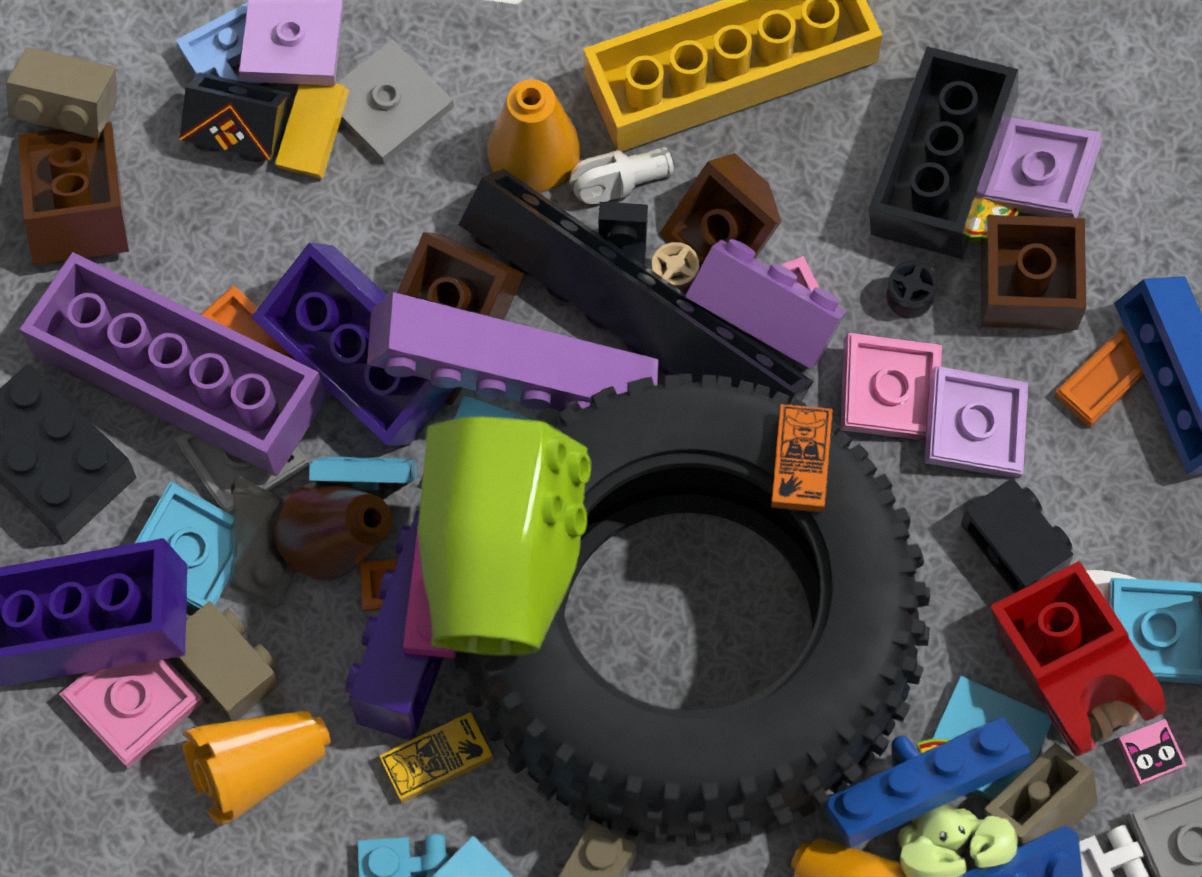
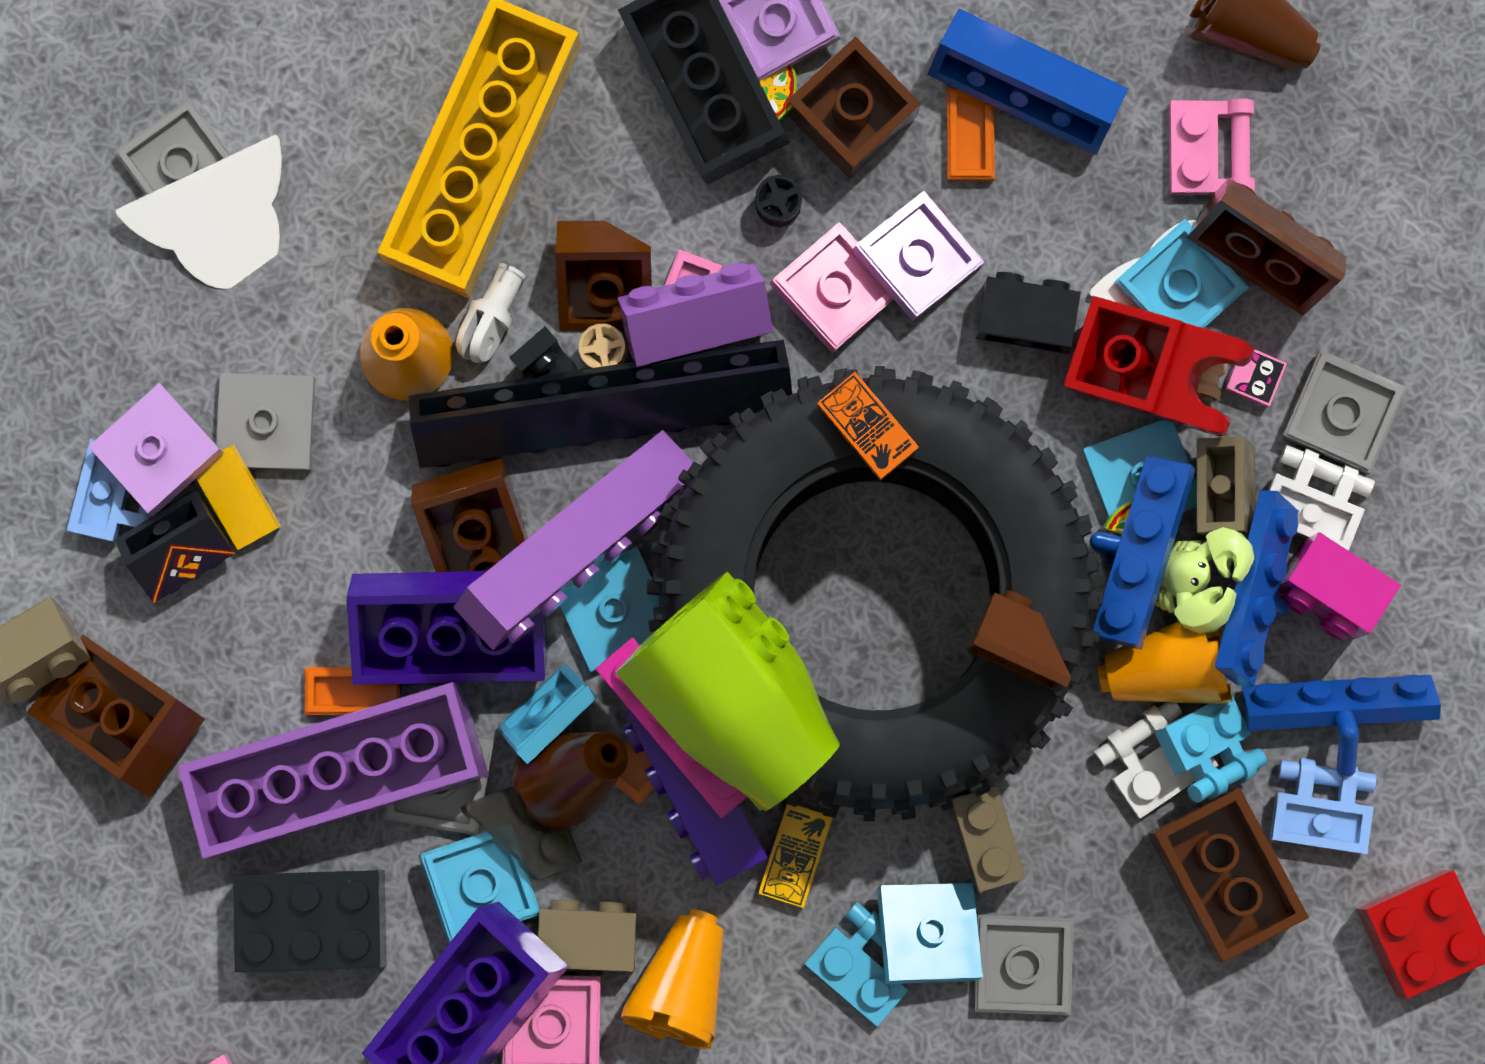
camera: 45 degrees left, 15 degrees up
(751, 707) = (1019, 641): none -> reddish brown slope

